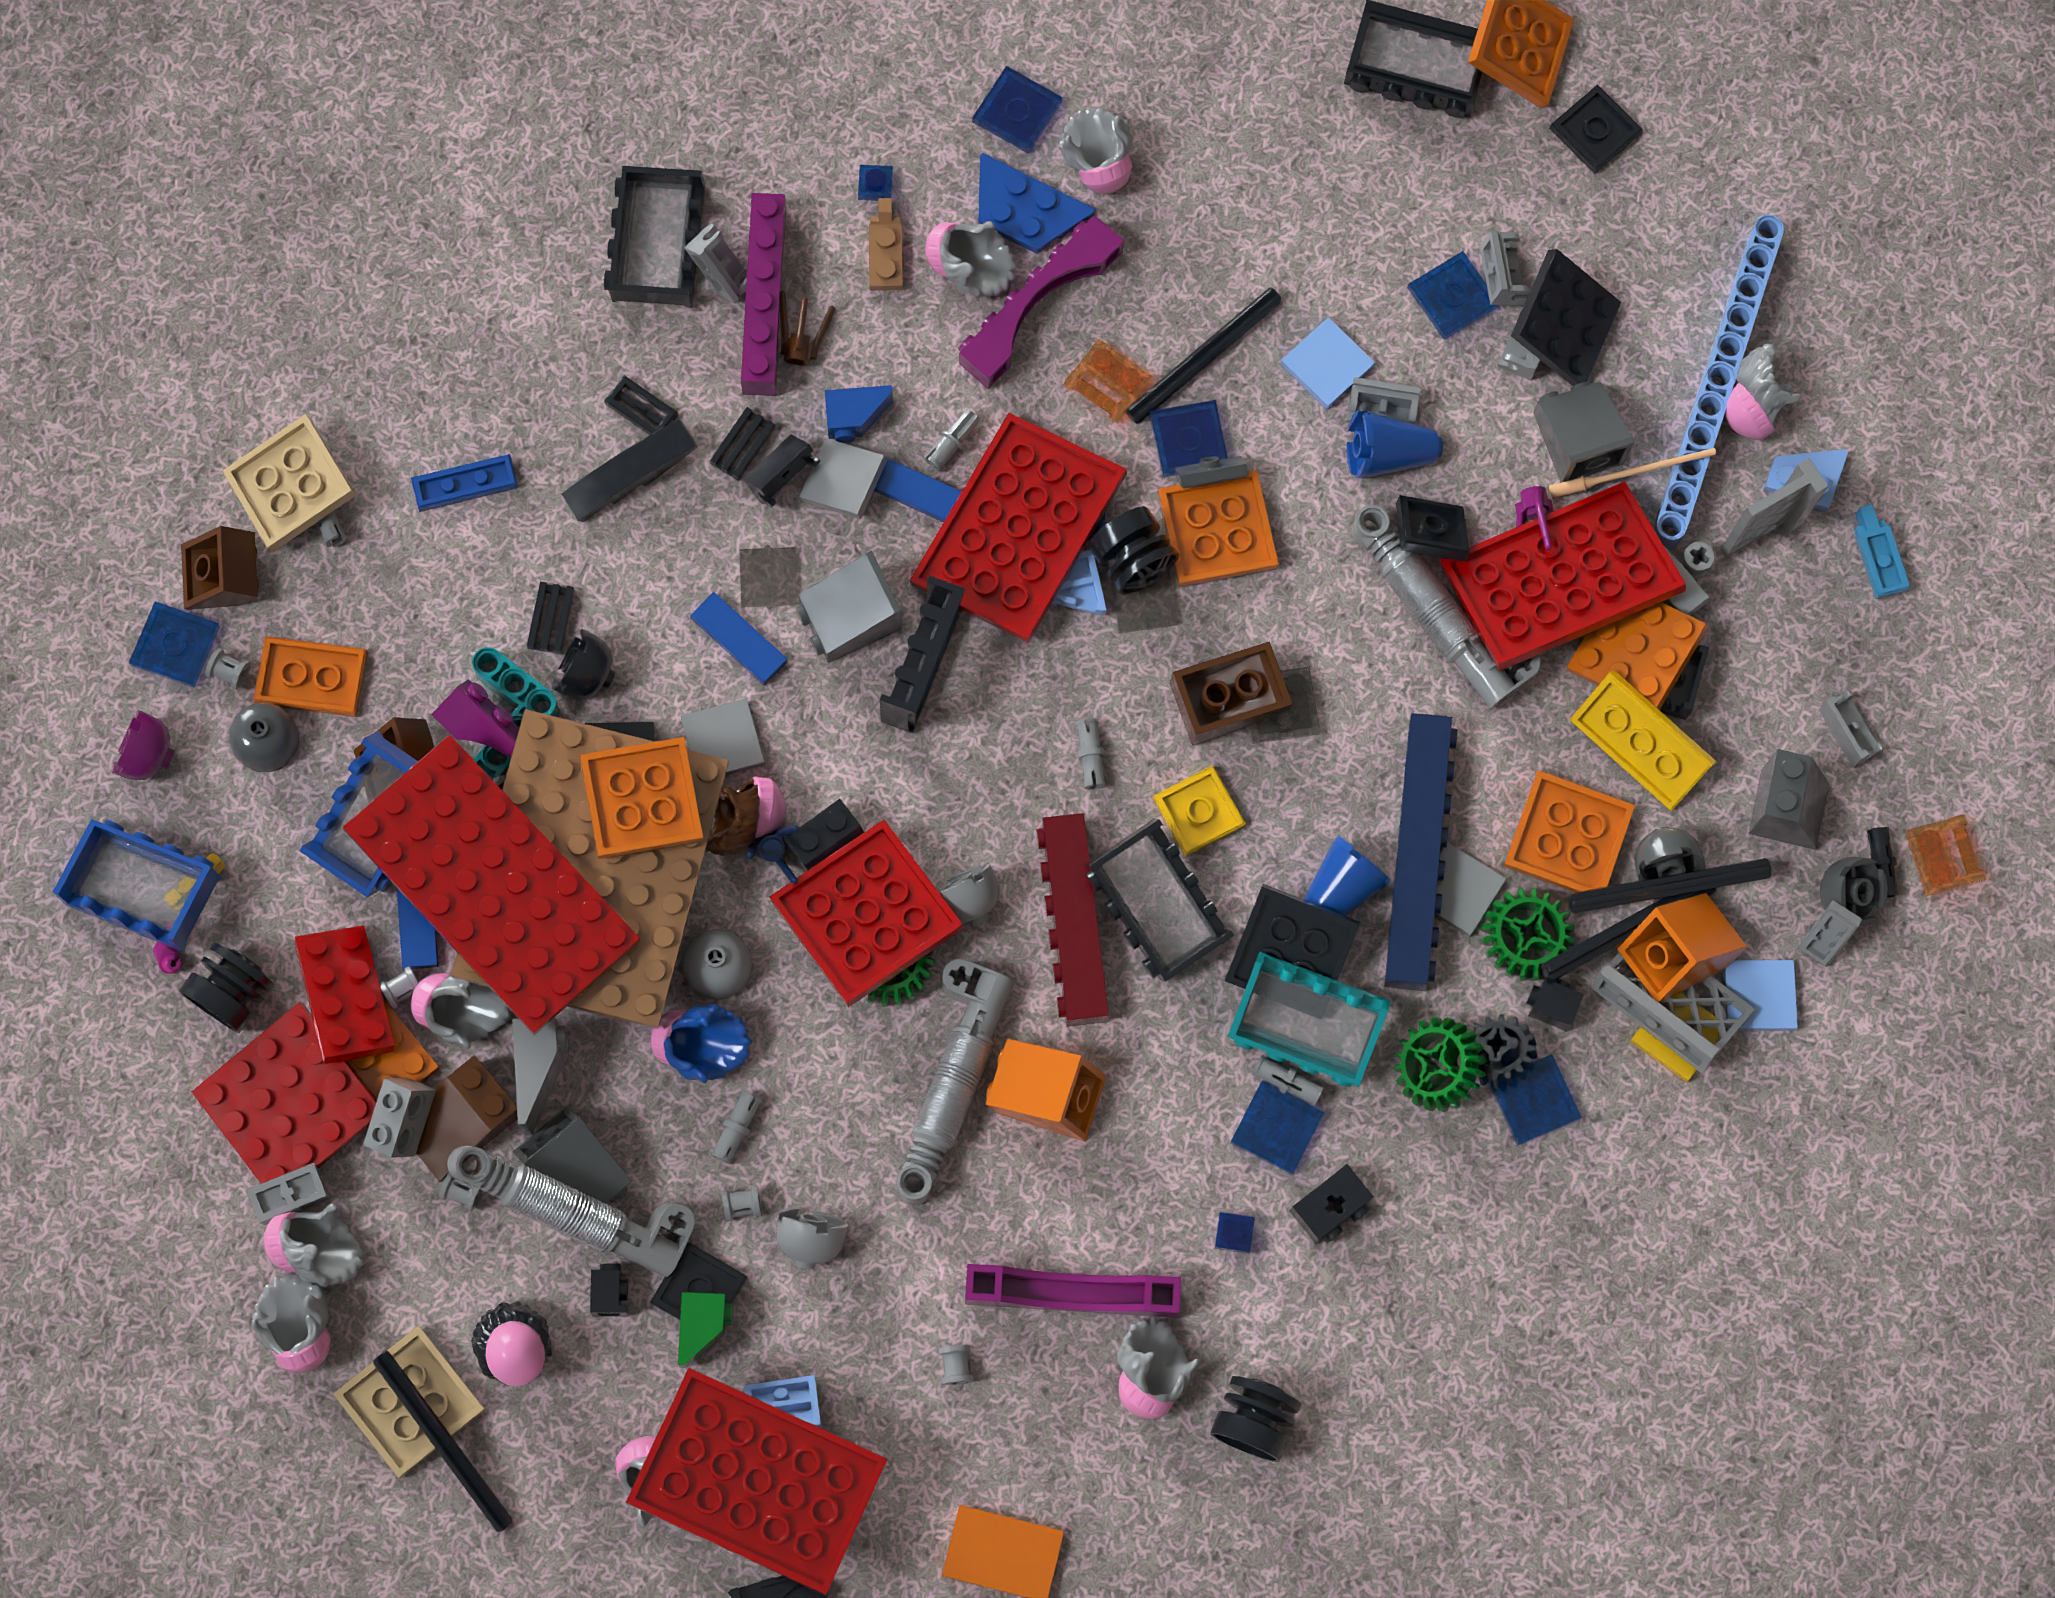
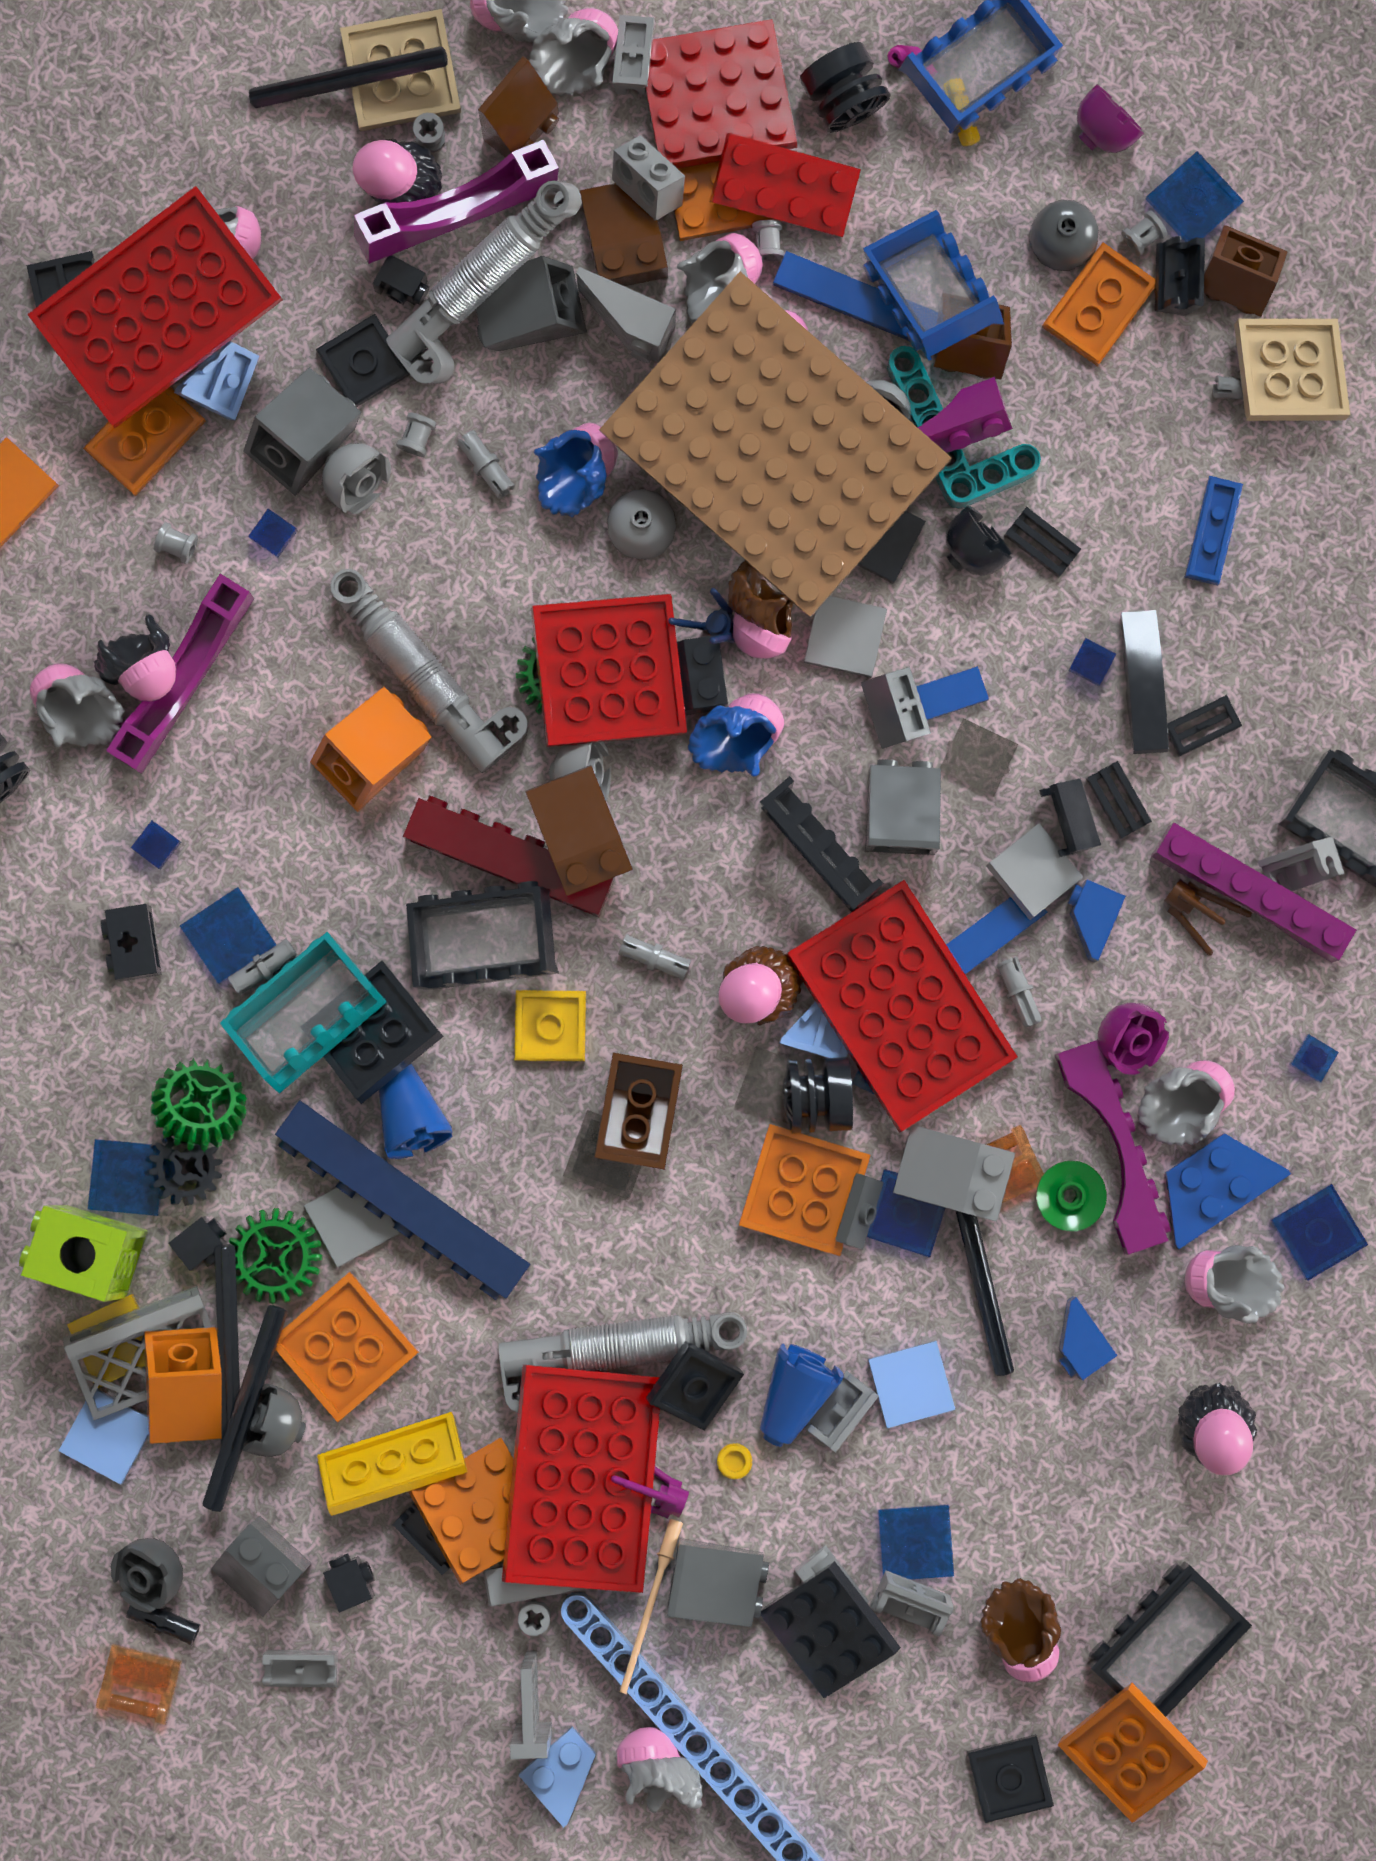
camera: 120 degrees right, 10 degrees up
(251, 617) = (1179, 276): none -> black hinge
(400, 1263) = (518, 110): none -> reddish brown slope
(451, 1332) = (431, 122): none -> light grey bush
(491, 884) = (801, 343): red plate -> none
(522, 1280) = (402, 225): none -> magenta arch
(635, 523) = (1092, 662): none -> clear blue plate
(641, 797) = (810, 515): orange plate -> none
(701, 1324) = (328, 342): green slope -> none
(764, 661) = (895, 707): none -> dark grey hinge
(793, 1305) = (301, 430): none -> dark grey slope
(860, 779) = (736, 735): none -> blue hair
(885, 249) = (1241, 1032): medium nougat hinge -> none
(897, 1441) = (145, 440): none -> orange tile
(899, 1283) = (272, 533): none -> clear blue plate
(940, 329) = (1132, 1037): none -> magenta cylinder
(1023, 857) = (579, 830): none -> reddish brown slope
(1068, 649) = (759, 986): none -> hair
(1083, 1331) = (138, 663): none -> hair
(1104, 299) = (1089, 1199): none -> green dish
(1135, 408) = (954, 1173): none -> light grey slope
(1215, 244) = (1082, 1342): none -> blue slope
(1224, 103) = (1218, 1428): none -> hair
(1473, 471) = (734, 1461): none -> yellow tile
(1474, 172) = (1022, 1629): none -> reddish brown hair
(1624, 1081) = (82, 1252): none -> lime piece
(1758, 725) = (349, 1581): none -> black brick
(1829, 933) = (121, 1528): light grey plate -> none
(1880, 554) = (448, 1796): dark azure hinge -> none

